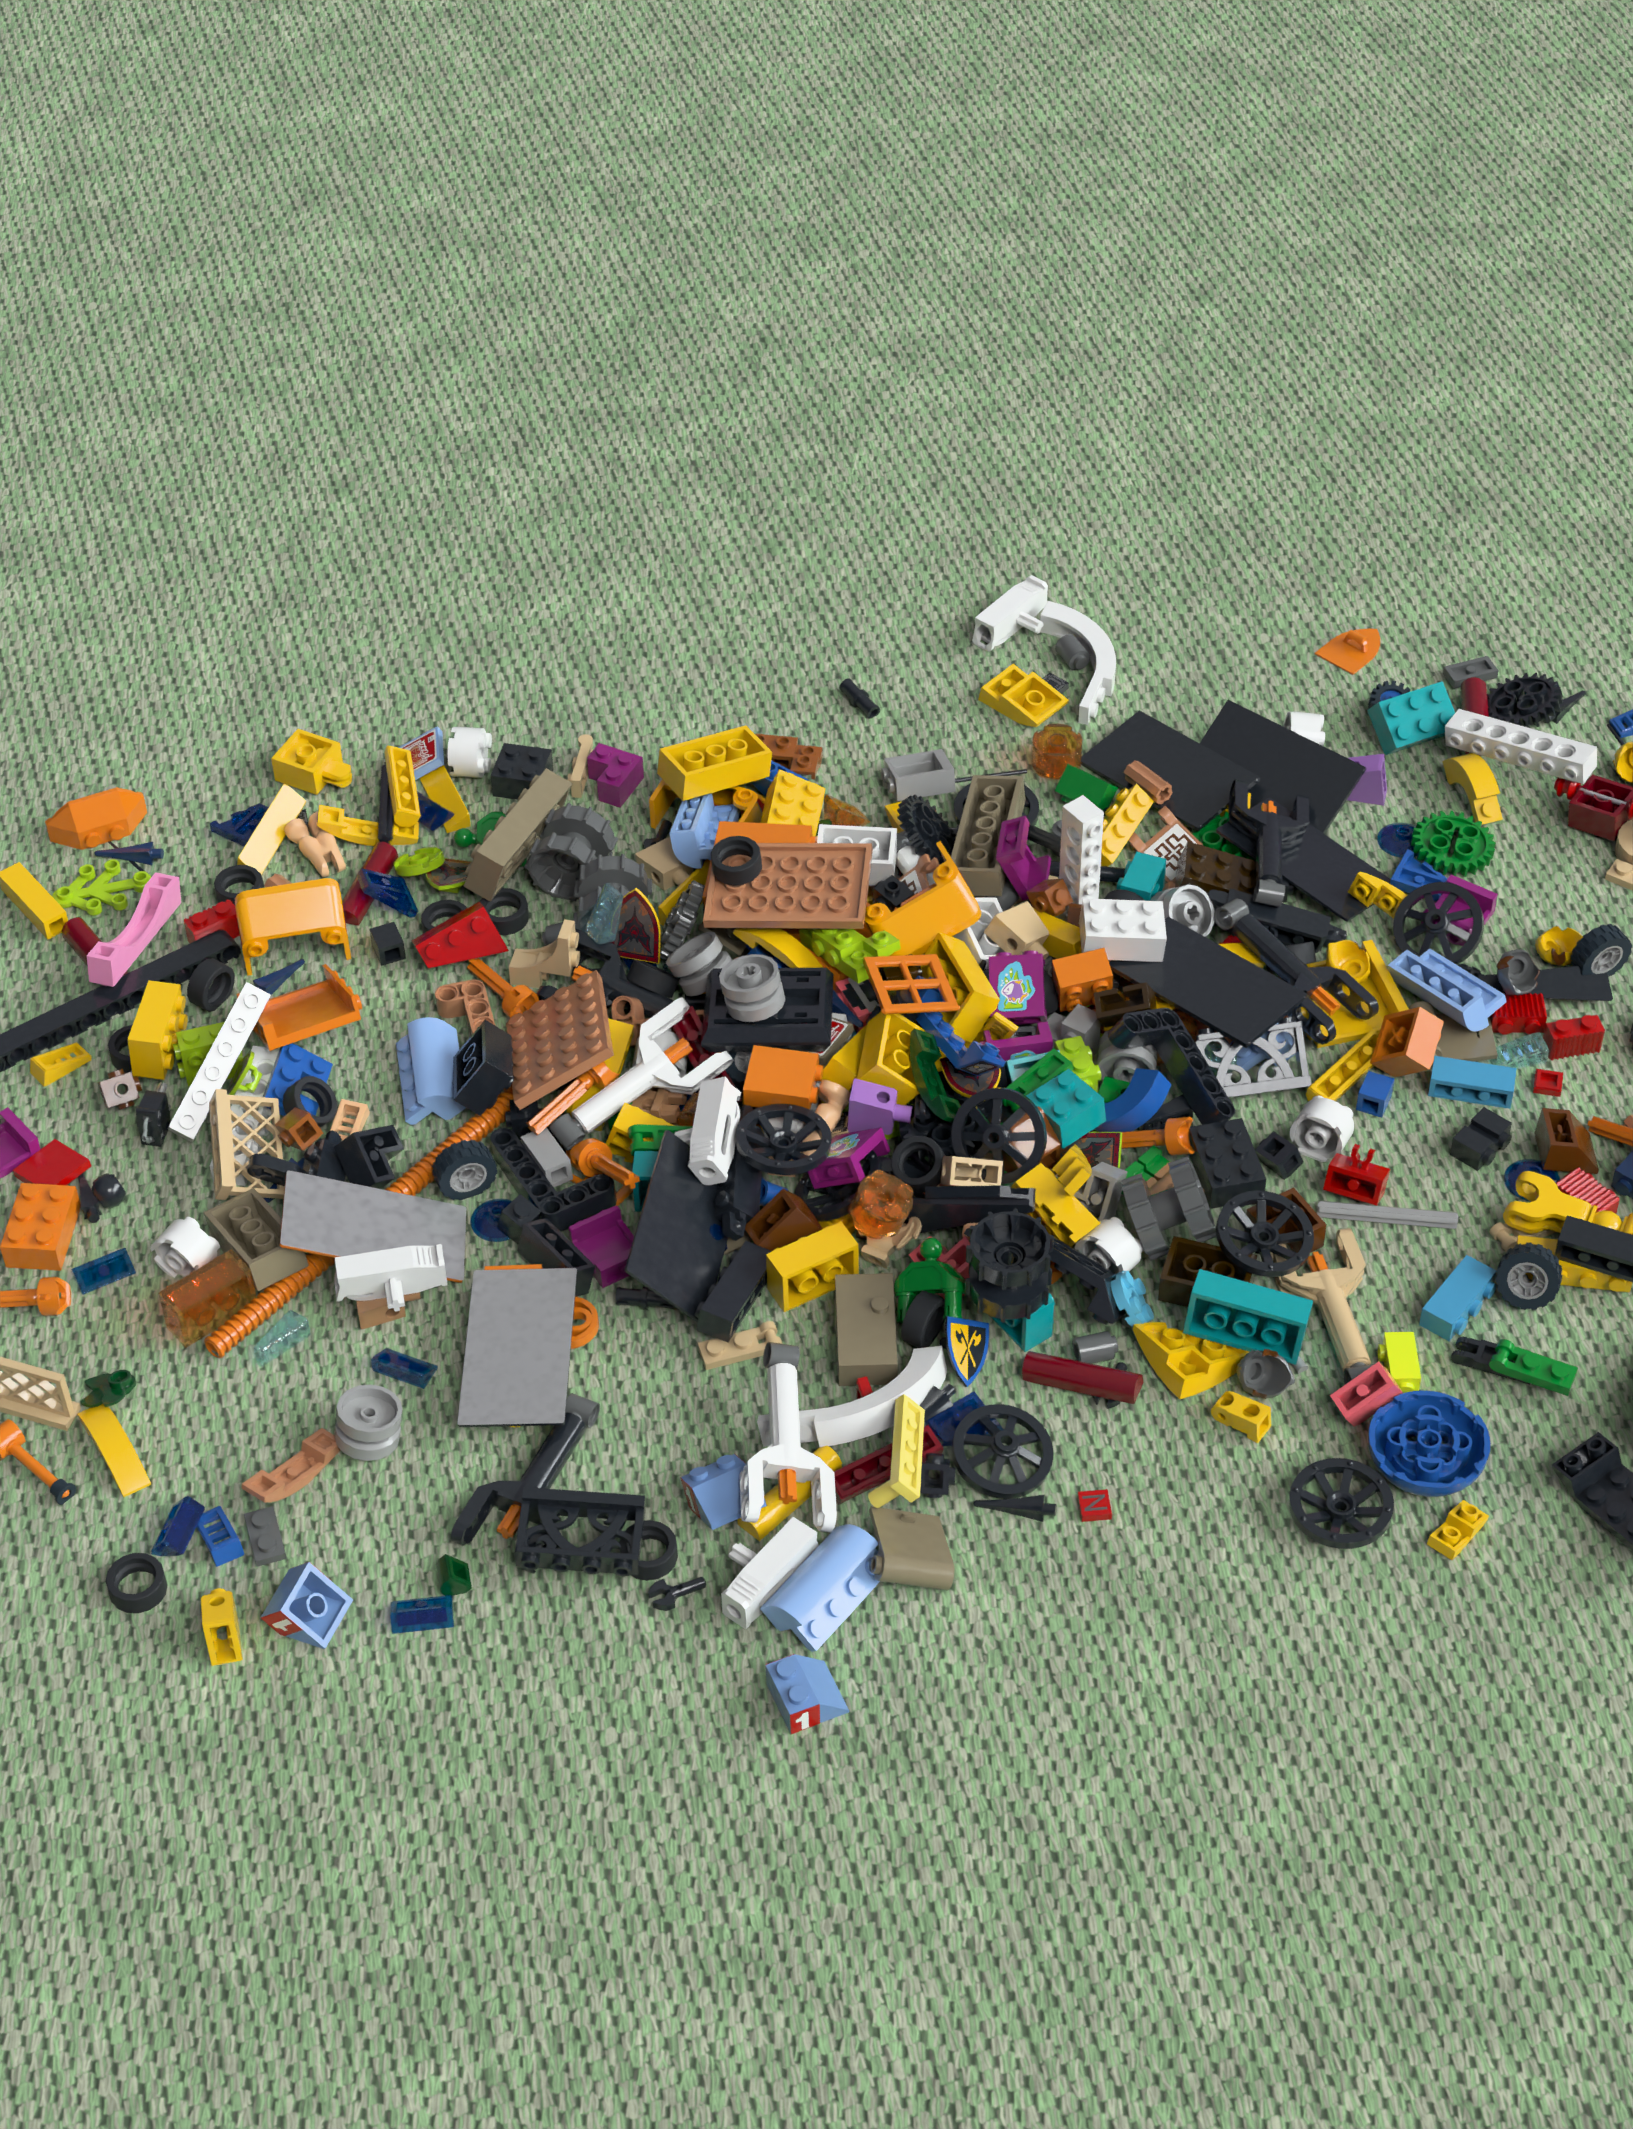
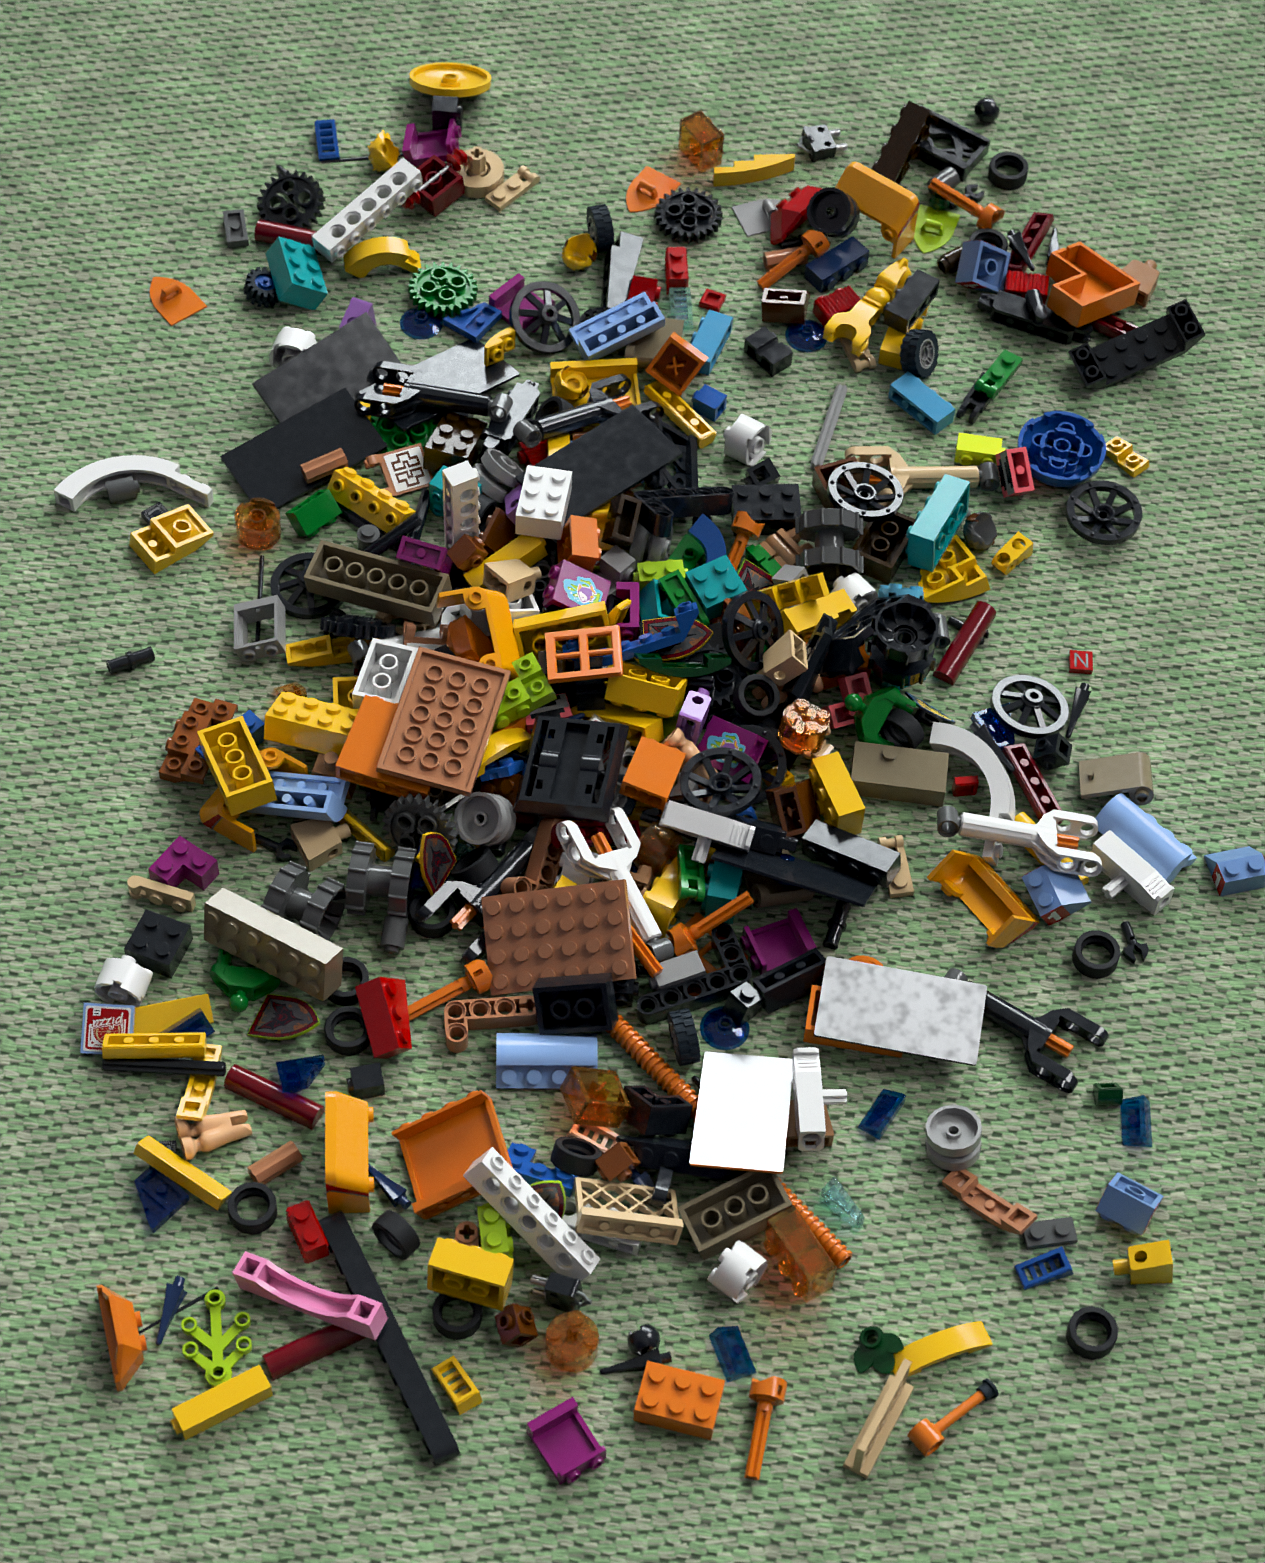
camera: 85 degrees left, 10 degrees up
(52, 1165) = (599, 1393): red tile -> none
(102, 1134) = (577, 1328): none -> clear orange brick
(178, 1528) = (1036, 1300): clear blue slope -> none
(310, 763) = (91, 1126): yellow brick -> none
(379, 1102) = (595, 1097): none -> clear orange brick
(422, 862) = (272, 1049): lime tile -> none
(534, 965) = (437, 942): tan arch -> none
(575, 1504) = (1068, 1008): black fence -> none
(605, 916) = (433, 887): clear light blue slope -> none
(725, 1431) = (986, 896): none -> light orange windscreen
(739, 874) = (414, 733): black tyre -> none
(752, 988) = (577, 761): light grey wheel -> none
(906, 1455) = (1079, 760): light yellow piece -> none
(1011, 613) = (56, 522): white piece -> none
(1356, 1177) = (798, 432): red brick -> none
(1517, 972) = (620, 281): dark grey hair -> none

